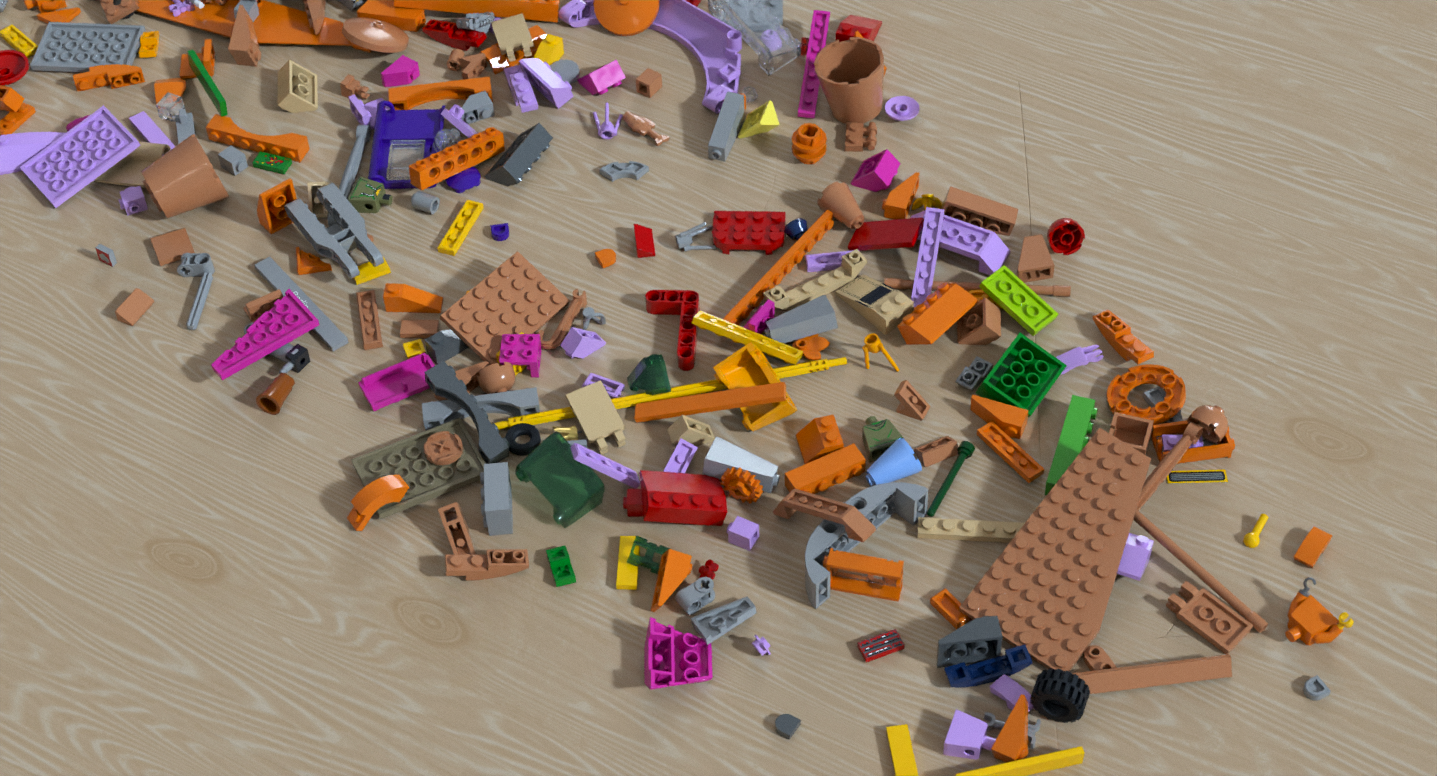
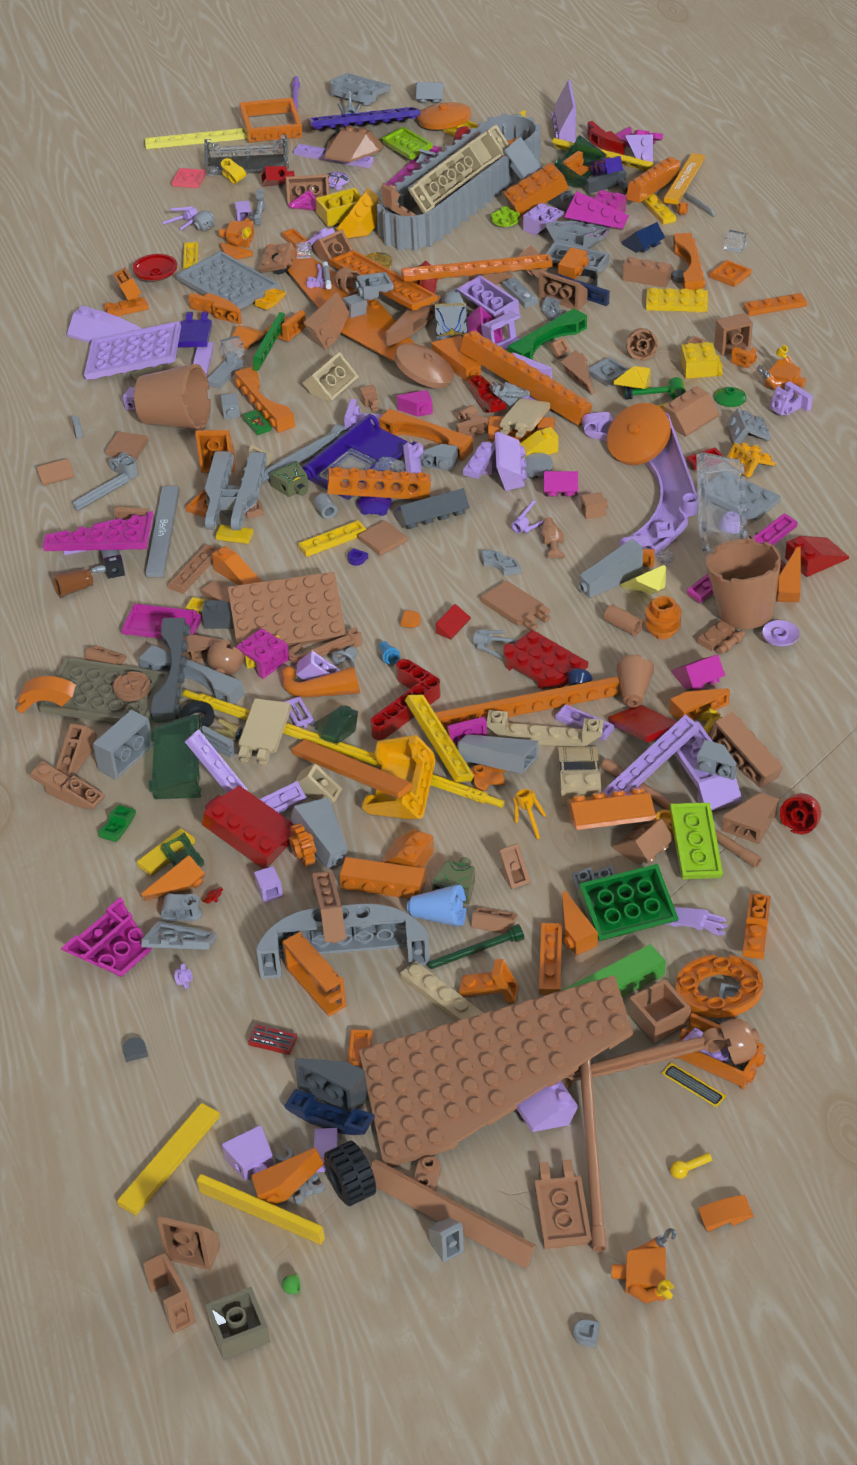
camera: 40 degrees right, 5 degrees down
(118, 105) = (195, 332): none -> dark purple tile
(379, 439) = (104, 655): none -> nougat slope
(503, 203) = (382, 537): none -> nougat tile
(610, 345) = (336, 683): none -> orange animal
(622, 294) = (389, 653): none -> dark azure cone
(678, 198) = (516, 605): none -> nougat tile
(776, 163) = (623, 620): none -> nougat pin
(979, 229) = (716, 760): none -> light grey slope
(991, 497) = (493, 982): none -> orange bracket
(1166, 691) = (447, 1238): none -> light grey slope

